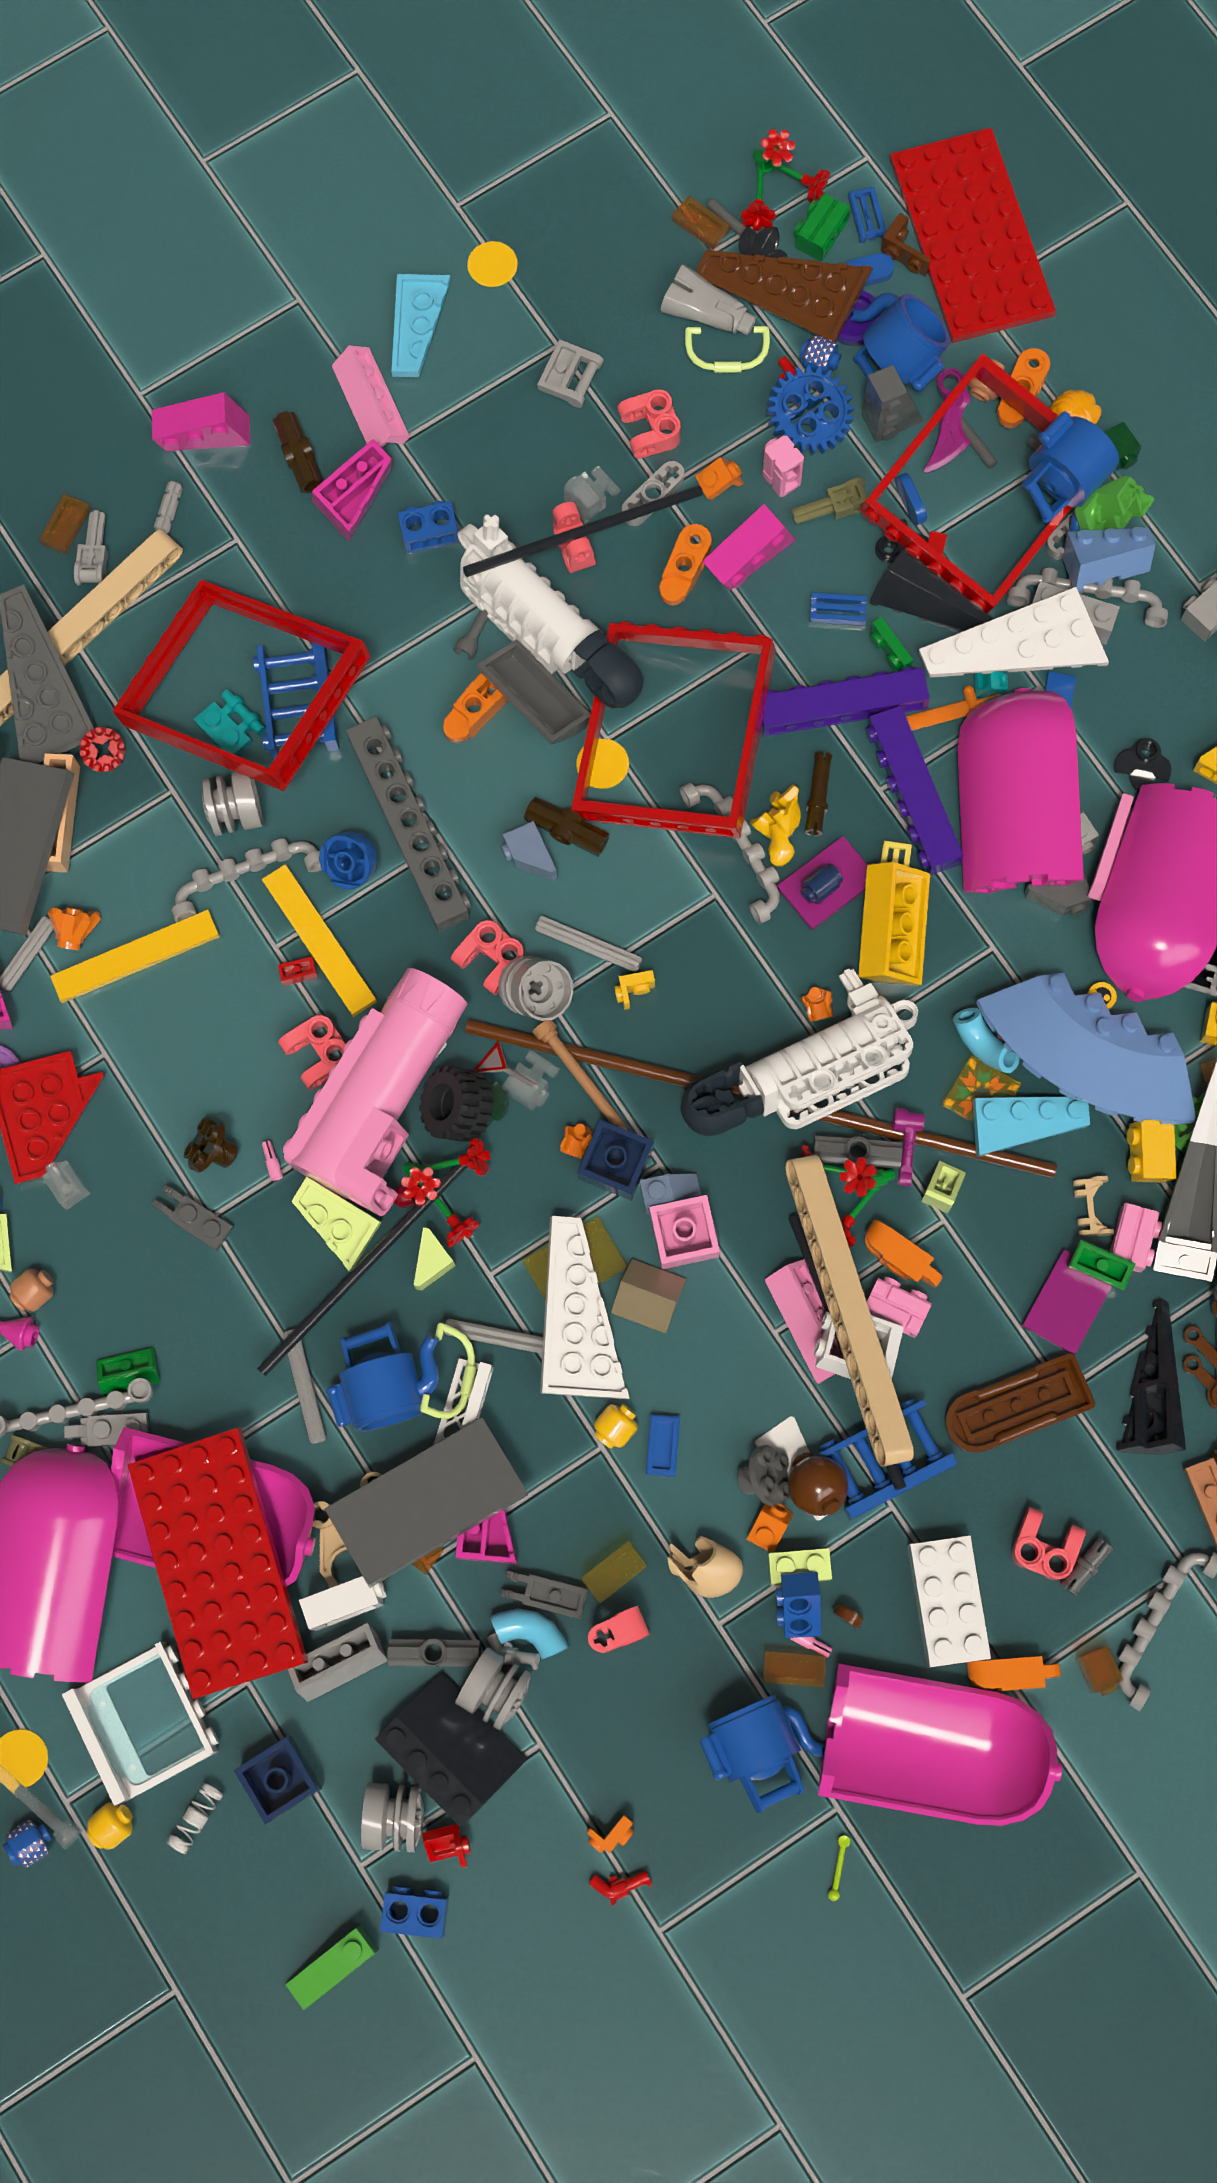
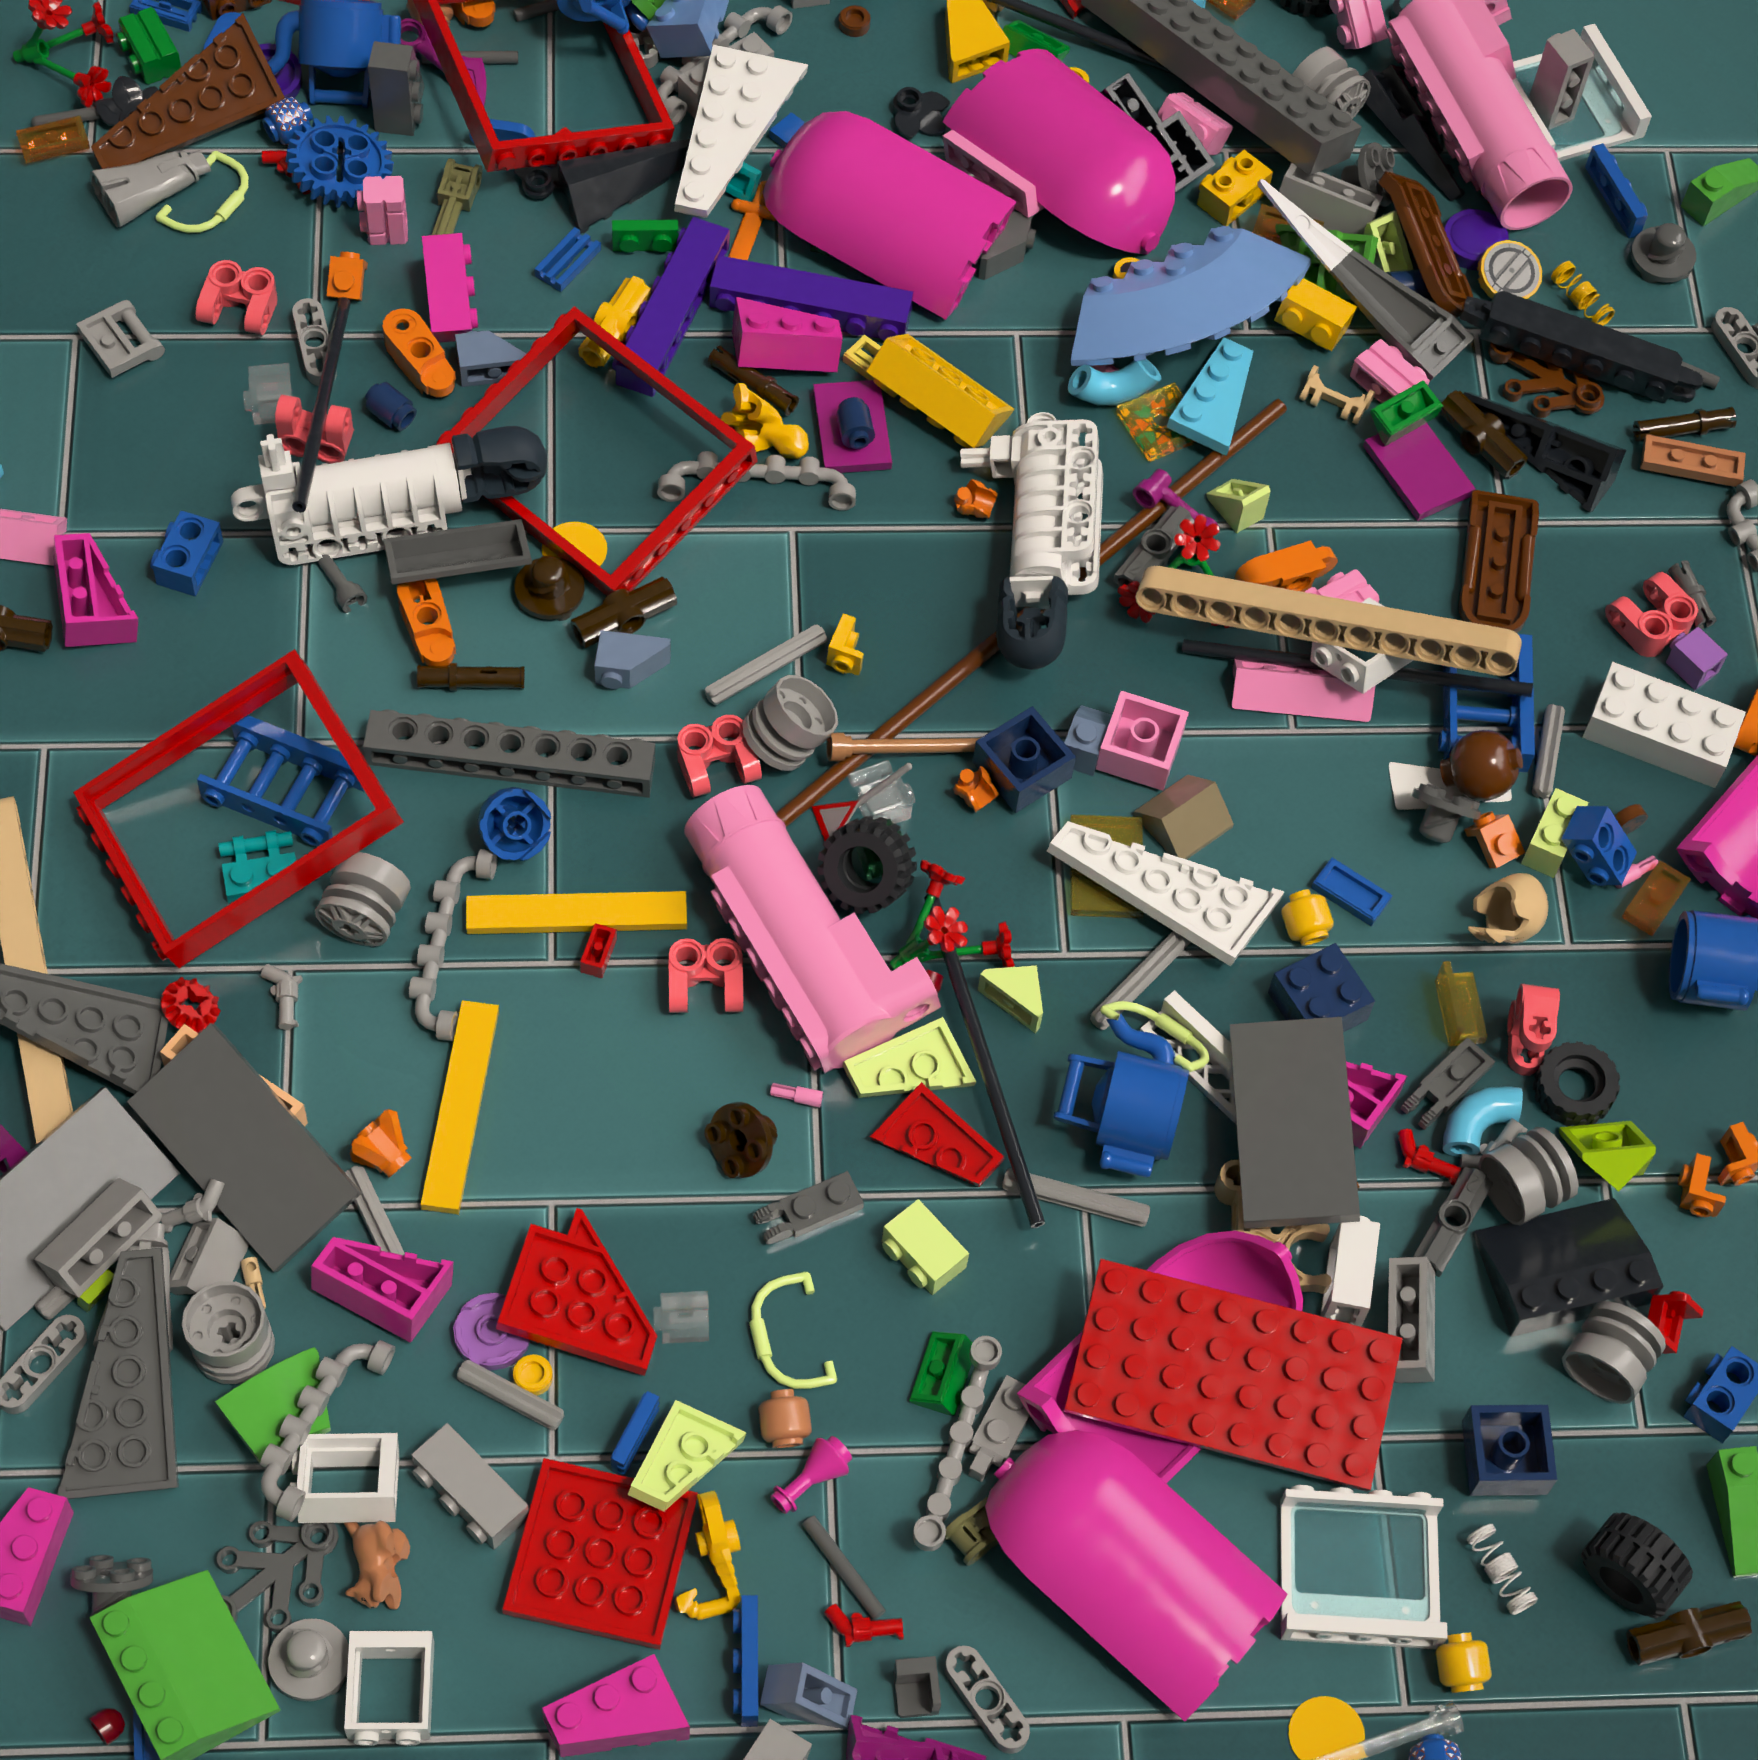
camera: 70 degrees left, 15 degrees down
(81, 1243) = (761, 1339): none -> yellowish green piece
(148, 800) = (286, 994): none -> light grey piece
(204, 1307) = (924, 1247): none -> yellowish green brick
(219, 1971) = (1689, 1633): none -> dark brown piece
(235, 1911) = (1637, 1565): none -> black tyre
(293, 1267) = (939, 1137): none -> red wing
(446, 753) = (470, 677): none -> dark brown pin
(475, 1607) = (1423, 1159): none -> red piece
(554, 767) = (549, 588): none -> dark brown plate
(556, 1468) = (1322, 988): none -> dark blue brick
(556, 1734) = (1611, 1149): none -> lime slope
(571, 1809) = (1694, 1196): none -> orange bracket
(623, 1686) = (1581, 1057): none -> black tyre
(631, 574) = (390, 406): none -> dark blue brick
(709, 606) = (484, 357): none -> sand blue slope
(807, 671) = (616, 318): none -> yellow piece
(861, 792) = (784, 338): none -> dark pink wedge
(874, 1527) = (1548, 751): none -> light grey axle
(1028, 1596) = (1695, 657): none -> medium lavender brick
(1129, 1333) = (1483, 434): none -> dark brown piece
(1198, 669) = (854, 21): none -> reddish brown tile

